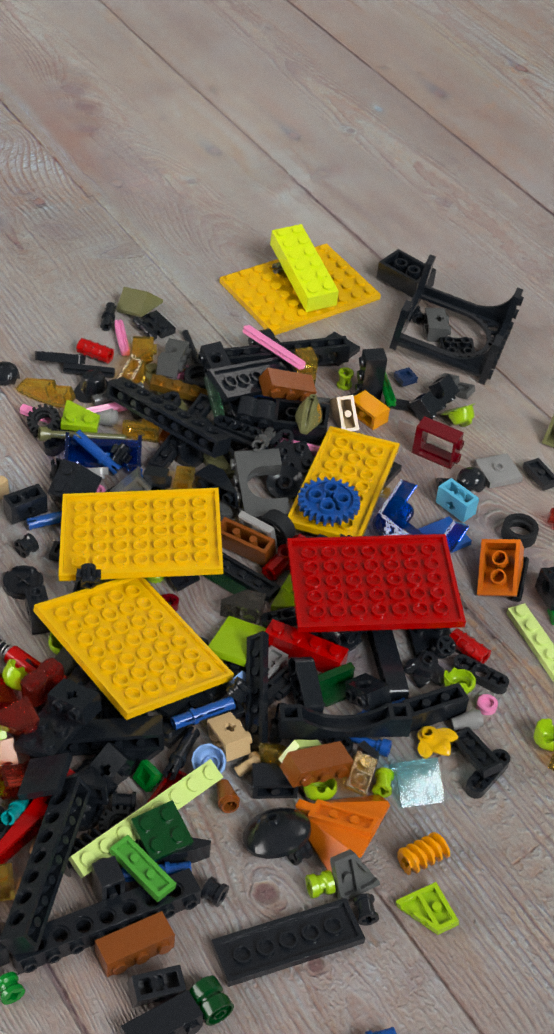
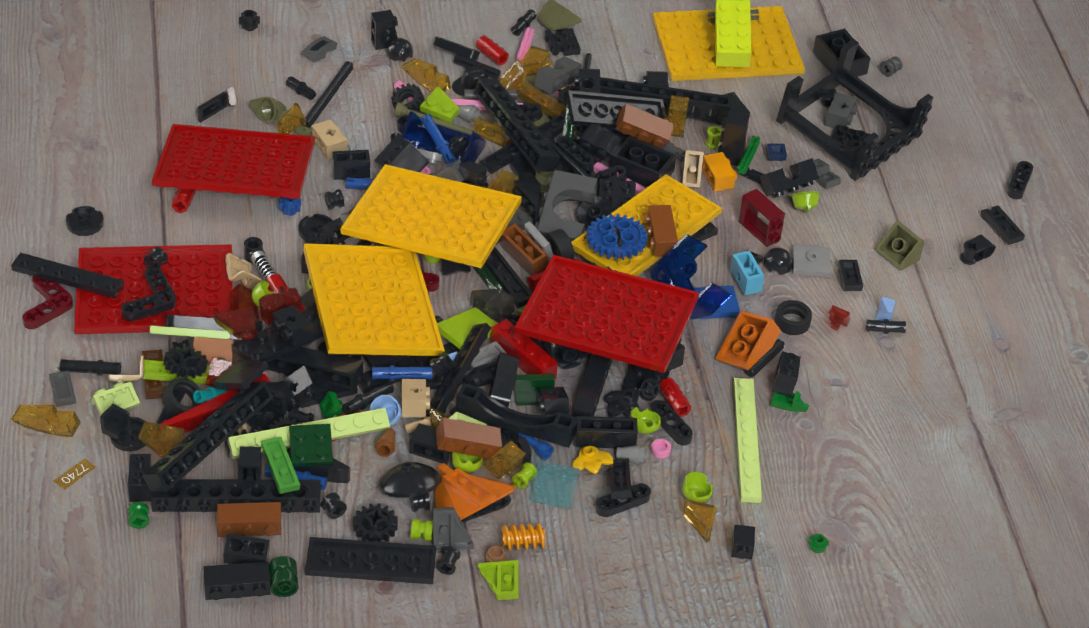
camera: 25 degrees right, 0 degrees up
(49, 577) = (334, 226): none -> black brick
(88, 575) = (363, 234): black gear -> none
(263, 439) = (587, 167): dark grey pin -> none
(268, 896) = (375, 523): none -> black gear
(274, 347) = (653, 89): bright pink axle -> none
(308, 414) = (647, 157): olive hat -> none
(366, 480) = (660, 229): none -> dark orange brick
(407, 883) = (495, 554): none -> medium nougat plate
(450, 273) = (891, 66): none -> dark grey bush

